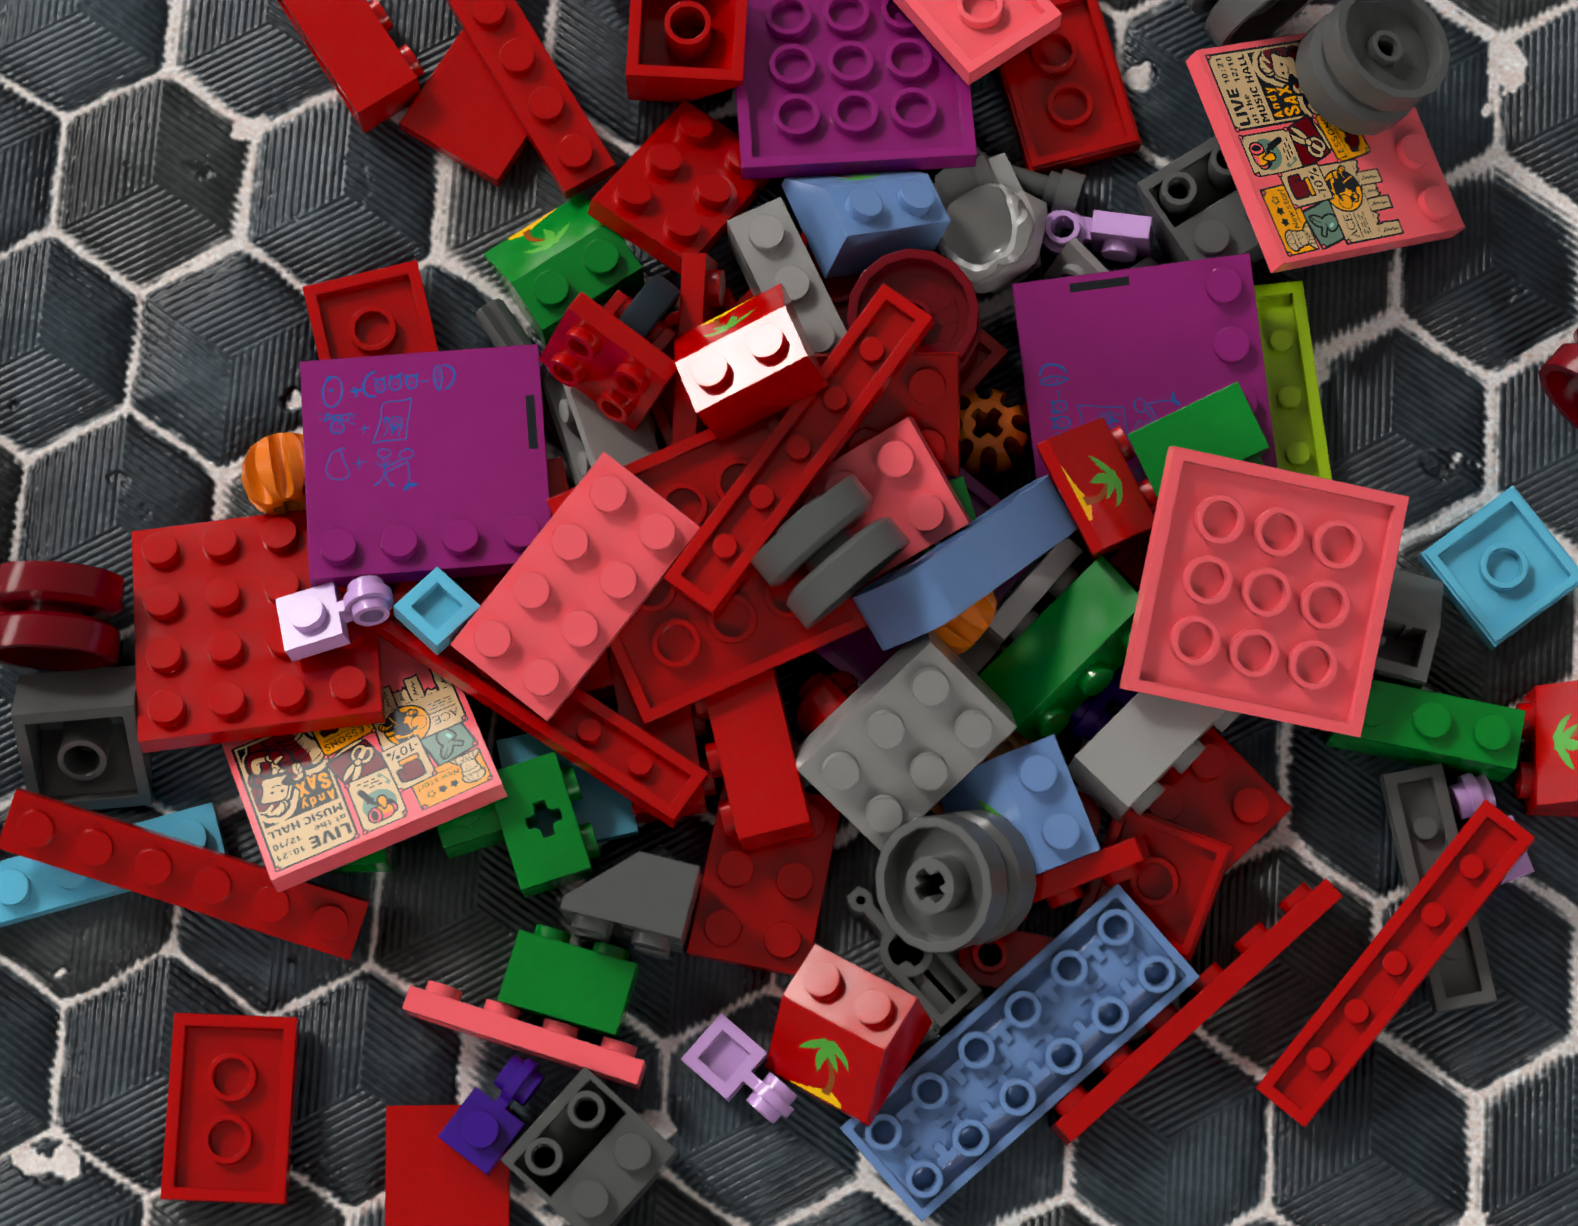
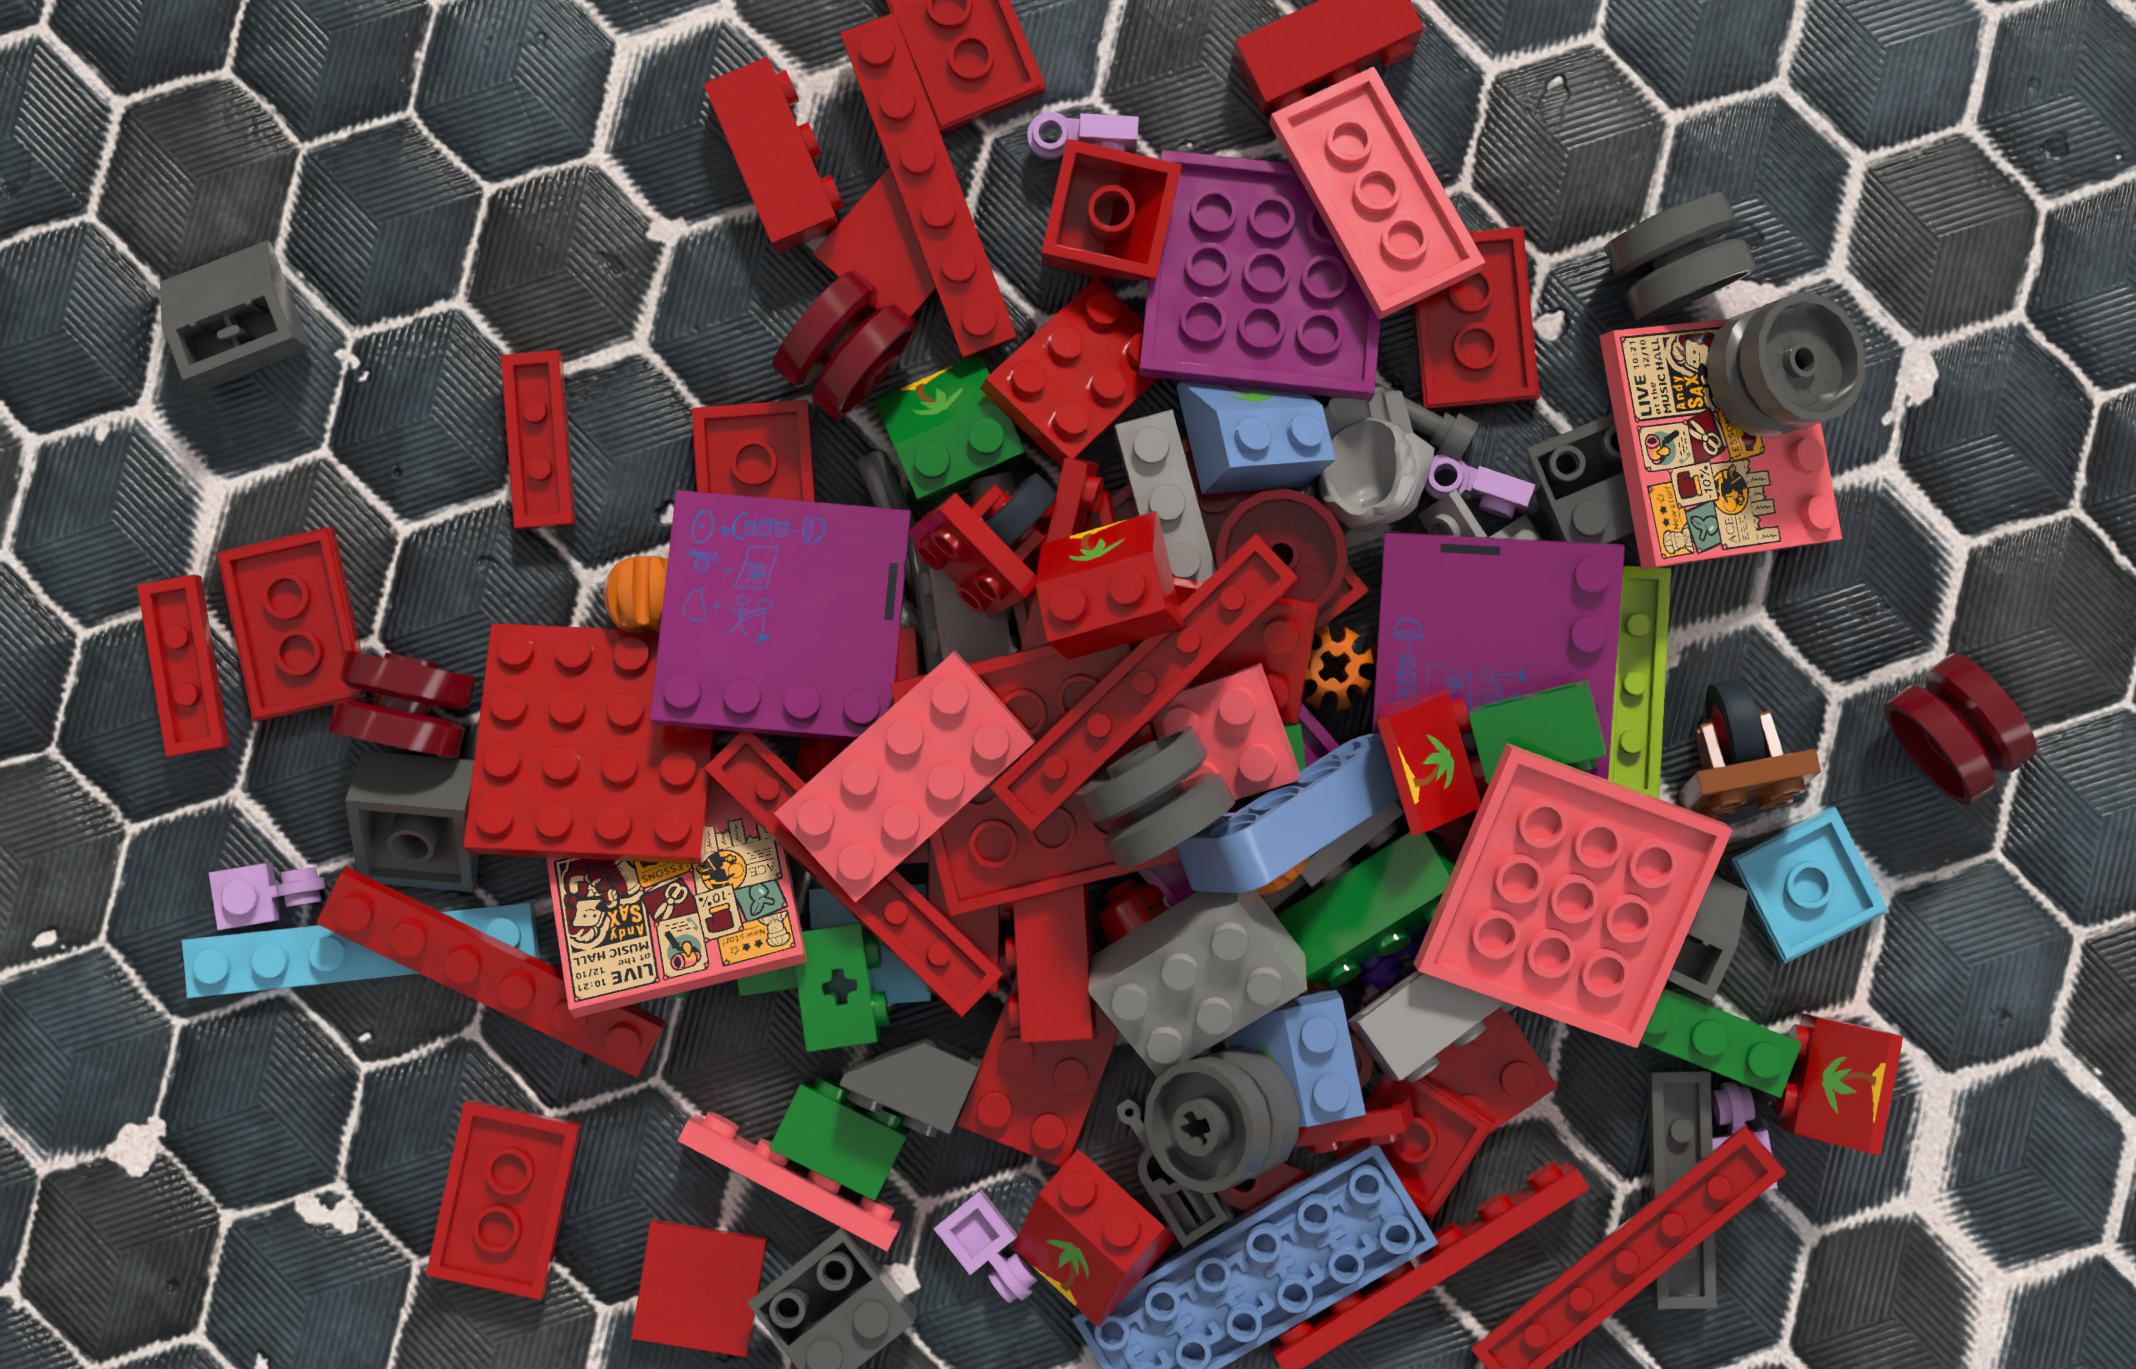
camera: 15 degrees right, 10 degrees up
(152, 345) = (538, 440): none -> red plate
(318, 616) = (652, 755): lavender plate -> none
(436, 610) = (768, 772): medium azure plate -> none
(446, 197) = (844, 345): none -> dark red wheel
(483, 1127) = (738, 1259): dark purple plate -> none
(1411, 446) = (1742, 757): none -> dark orange plate

